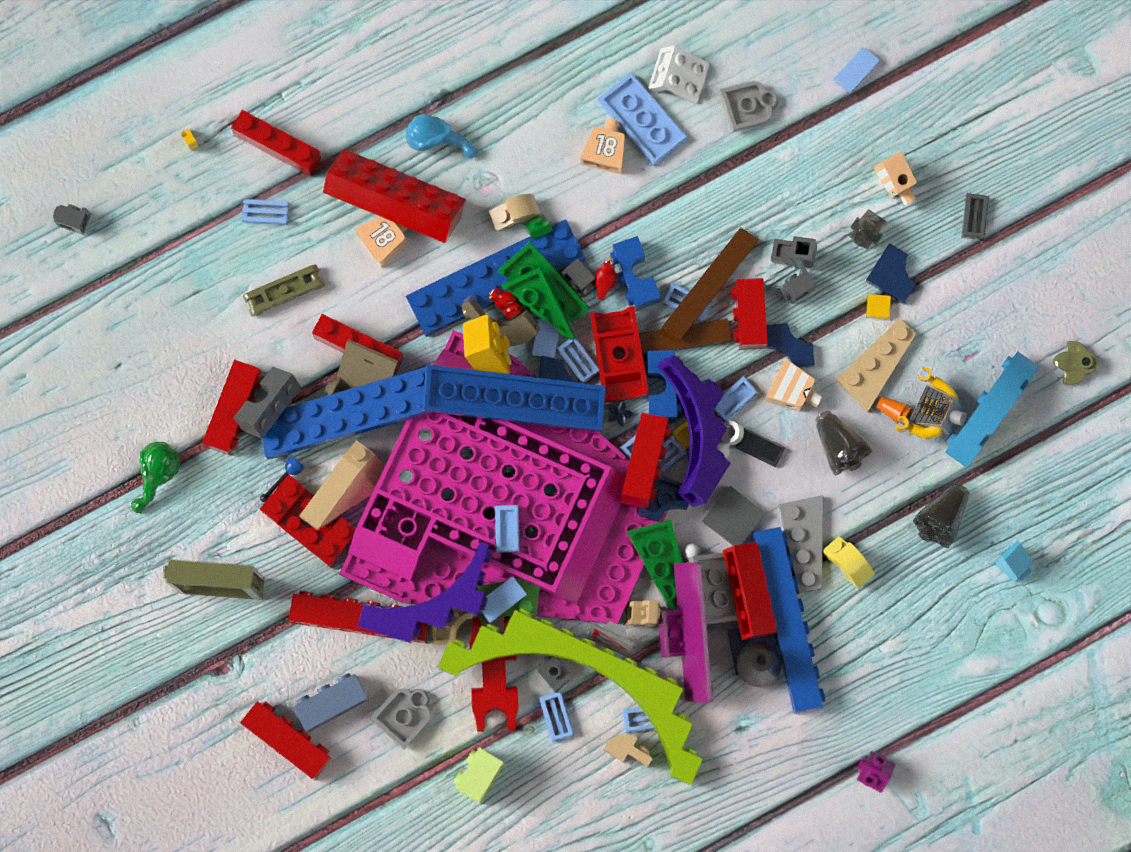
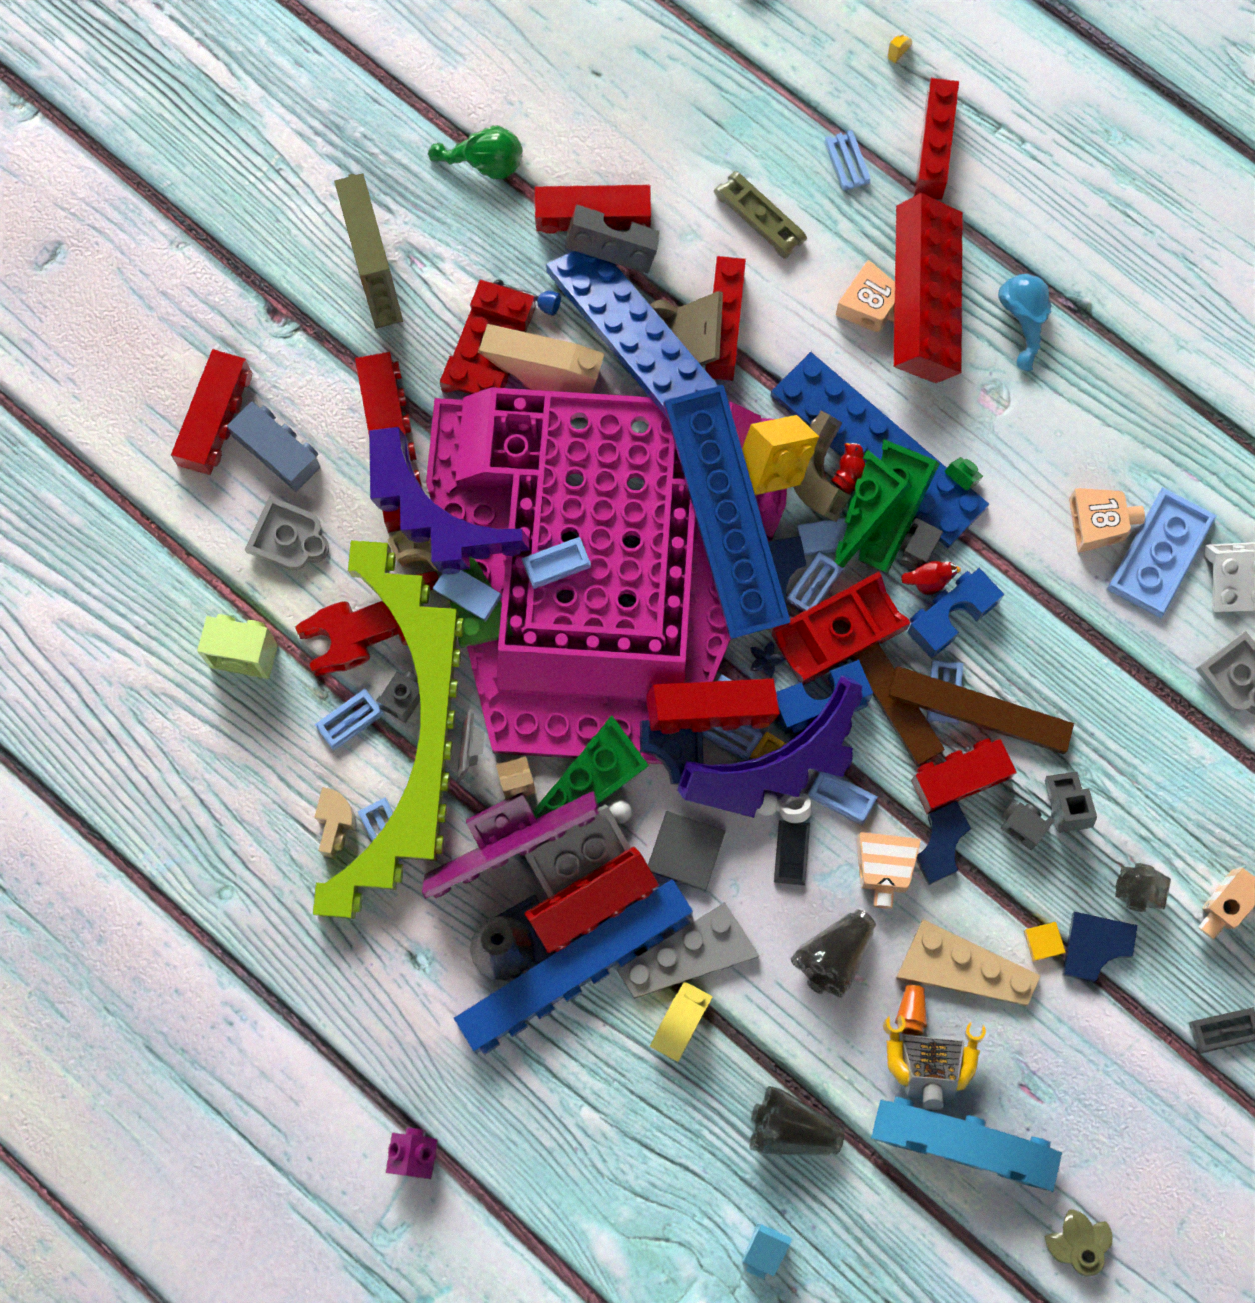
camera: 70 degrees right, 5 degrees down
(514, 211) = (973, 439): tan brick -> none

